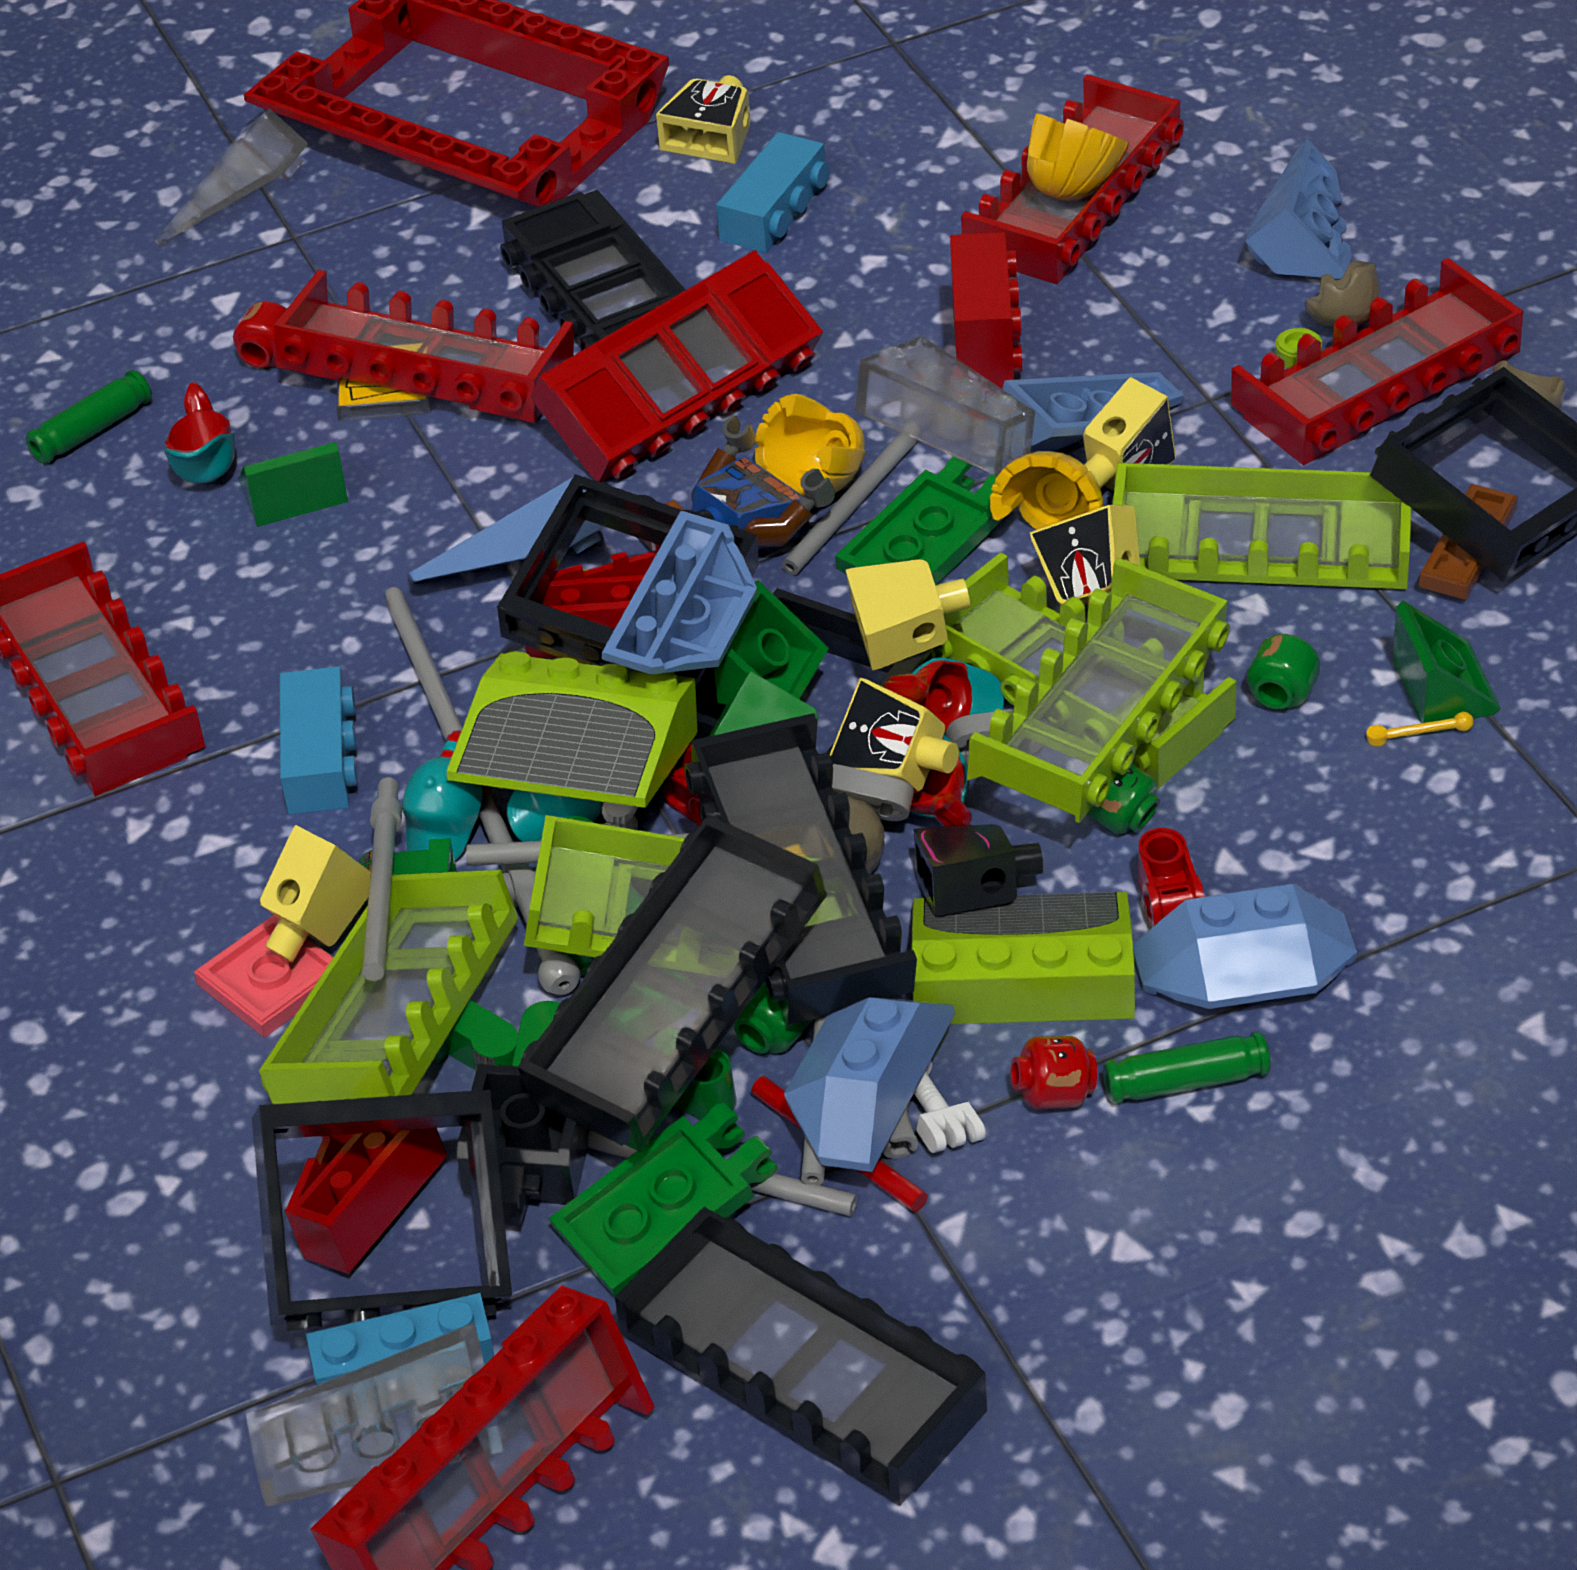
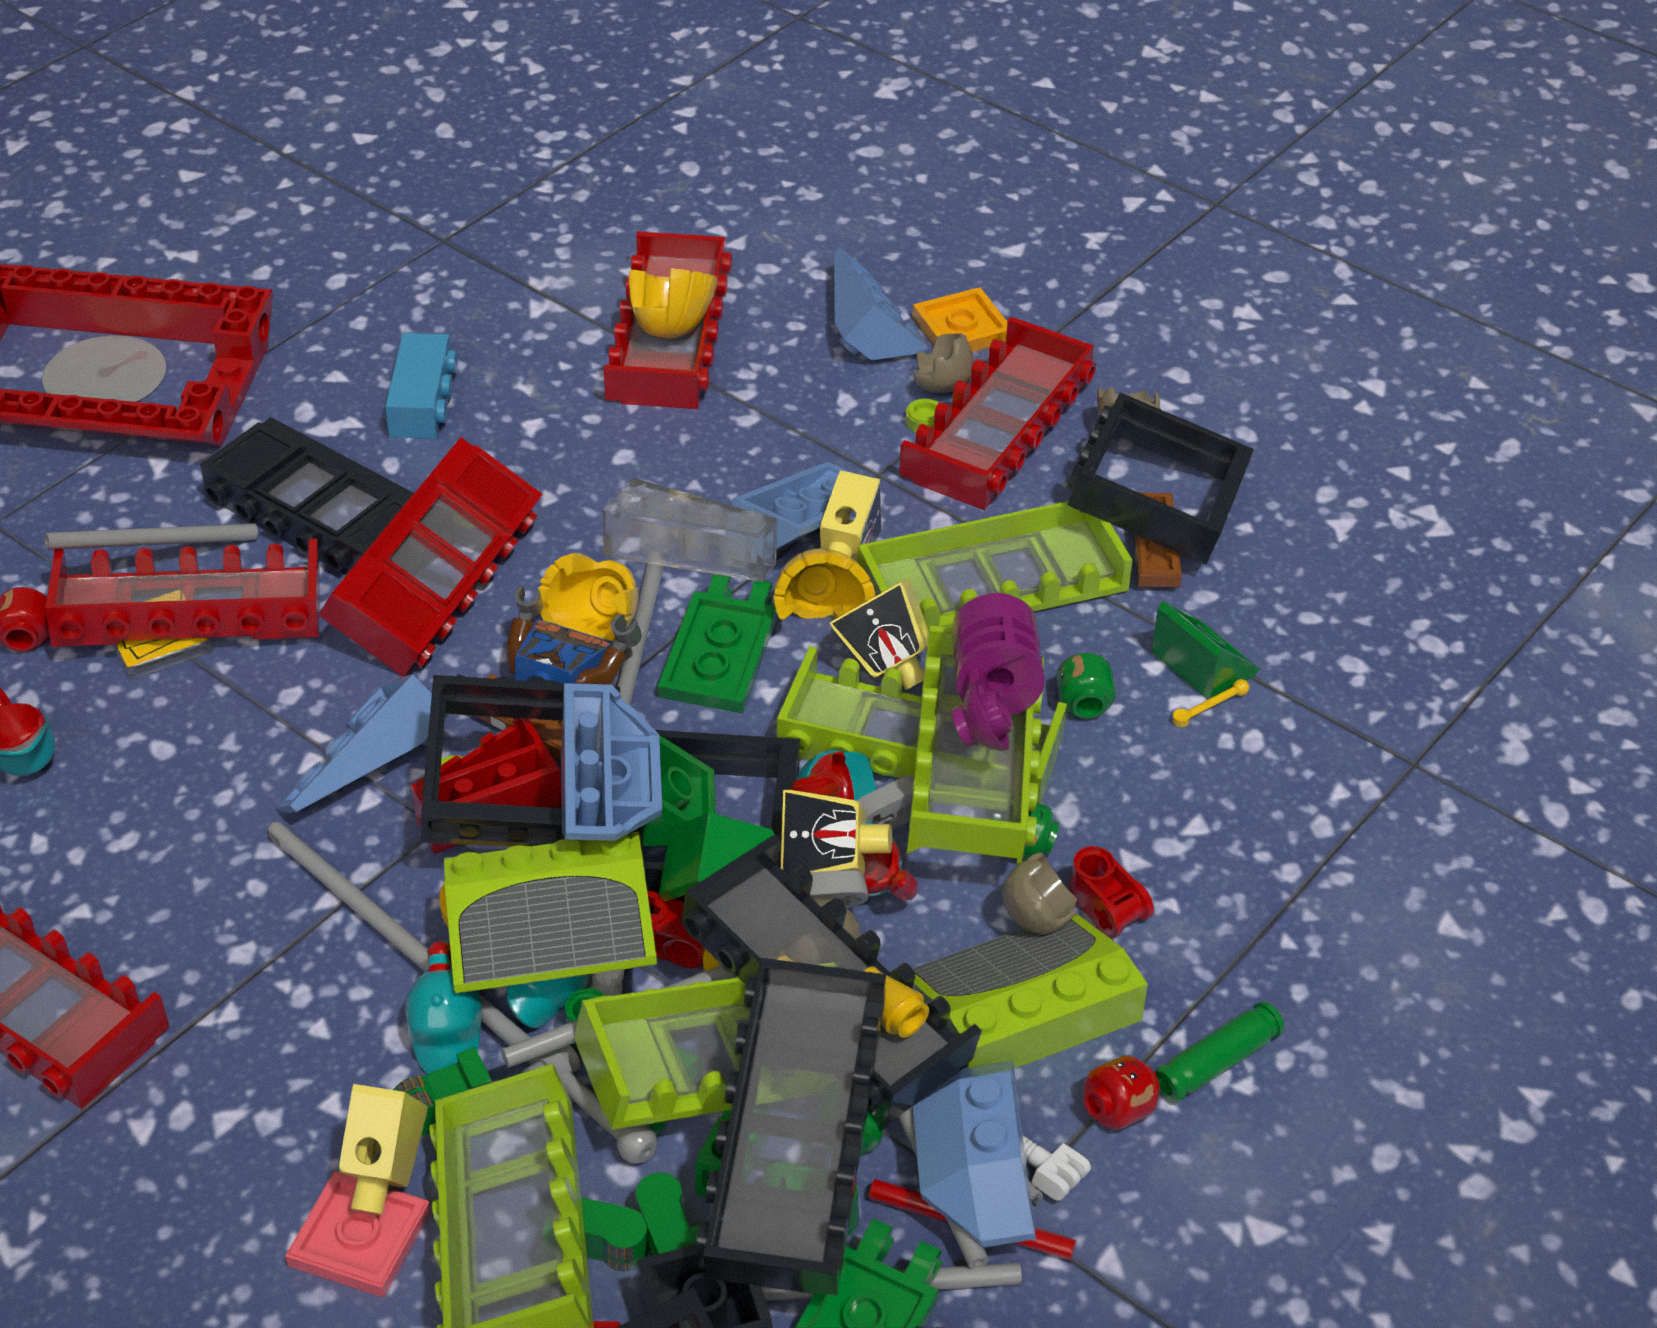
camera: 30 degrees left, 0 degrees up
(294, 484) = (126, 752): green slope -> none
(316, 740) = (283, 989): dark azure brick -> none
(385, 820) = (403, 1048): light grey bar -> none
(420, 282) = (150, 536): none -> light grey piece
(479, 107) = (106, 369): none -> light grey piece
(706, 120) = (326, 337): light yellow torso -> none
(845, 910) = (903, 1008): none -> yellow cone
(902, 609) = (765, 718): light yellow torso -> none
(971, 866) = (942, 930): black torso -> none
(986, 305) = (668, 438): red brick -> none
(1084, 860) = (1037, 897): none -> dark tan hair
(1142, 615) = (995, 667): none -> magenta cylinder
(1244, 948) = (1204, 932): medium blue wedge -> none
(1406, 251) = (964, 313): none -> light orange tile

